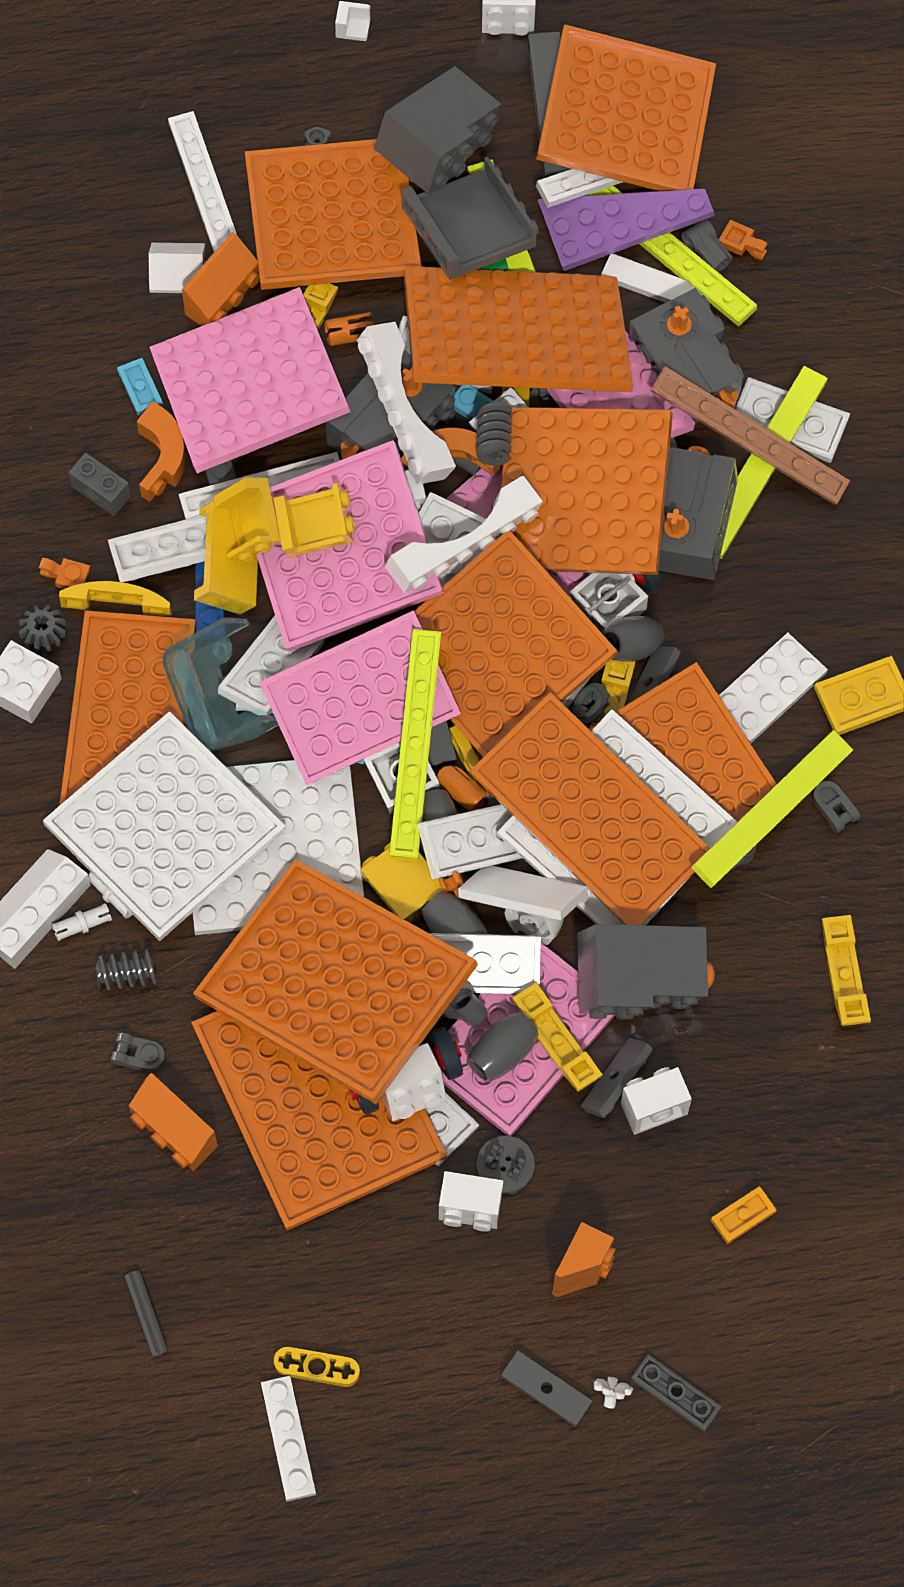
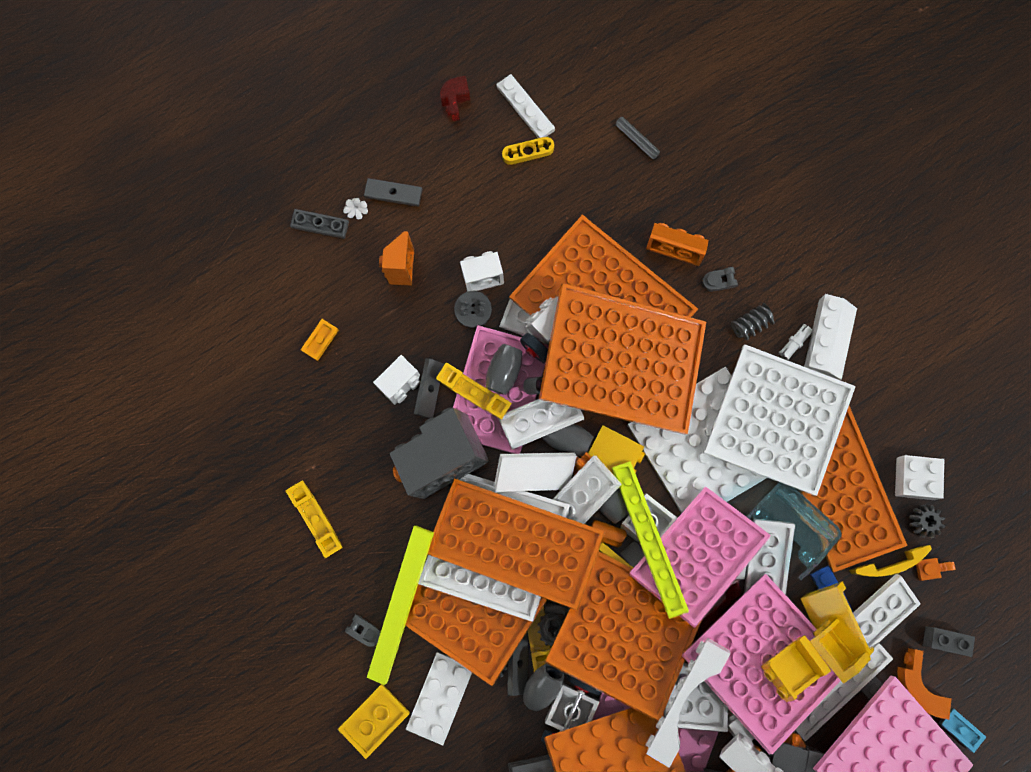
camera: 160 degrees right, 10 degrees up
(390, 1507) = (454, 92): none -> clear red brick

